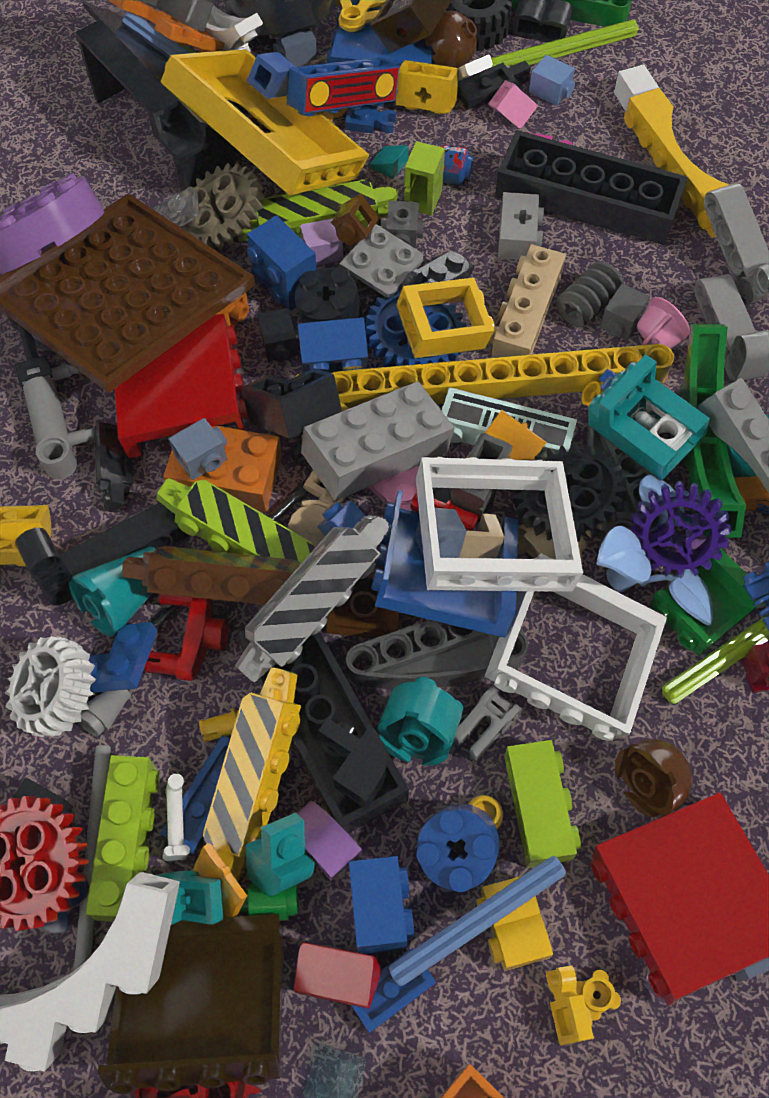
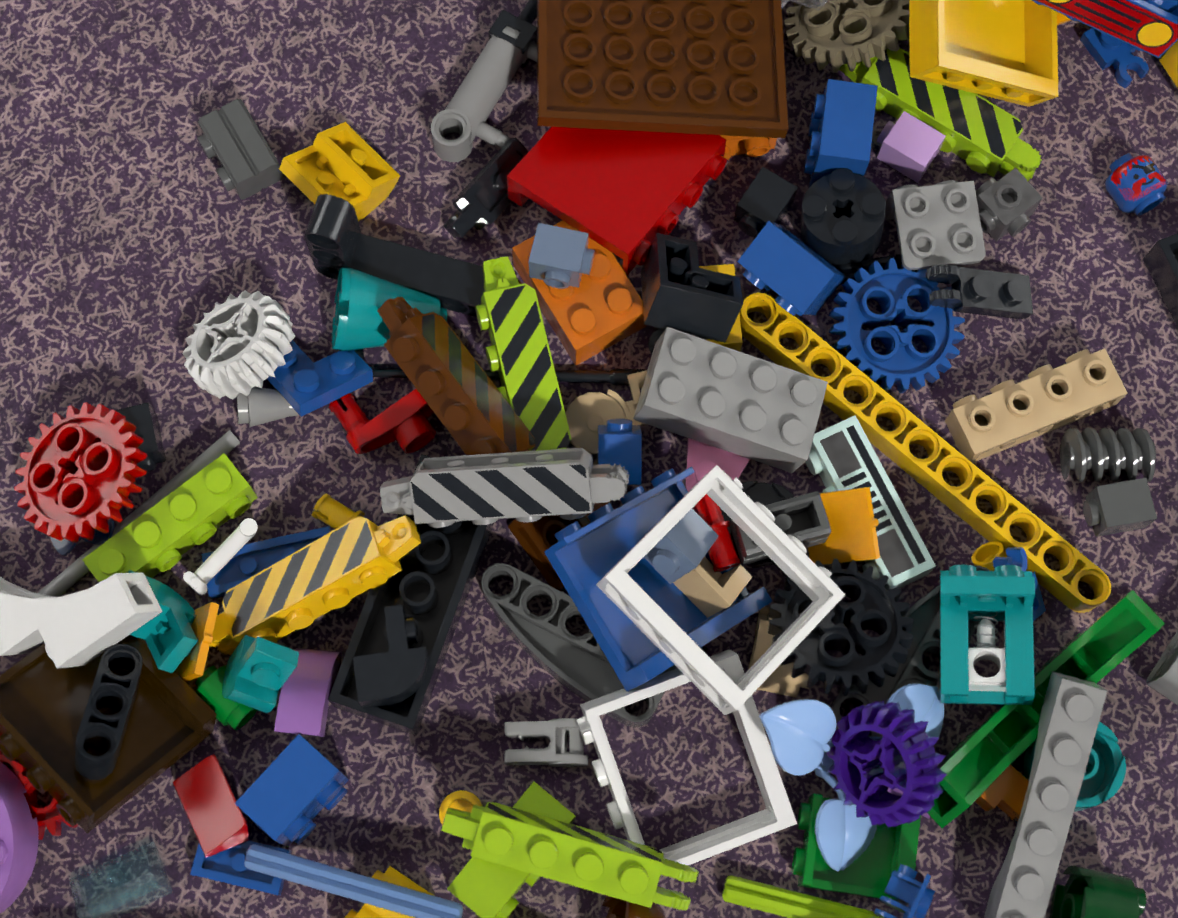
camera: 45 degrees right, 10 degrees up
(216, 1001) = (102, 729): none -> black beam
(348, 226) = (945, 158): reddish brown brick -> none
(390, 160) = (1082, 118): teal slope -> none
(418, 330) = (876, 344): yellow window -> none
(420, 722) = (485, 684): teal brick -> none
(424, 176) = (1081, 174): lime piece -> none
(447, 867) = (382, 812): blue brick -> none
(519, 224) = (1139, 299): light grey brick -> none
(577, 759) = (569, 854): none -> lime hinge
(662, 324) = (1127, 559): bright pink piece -> none

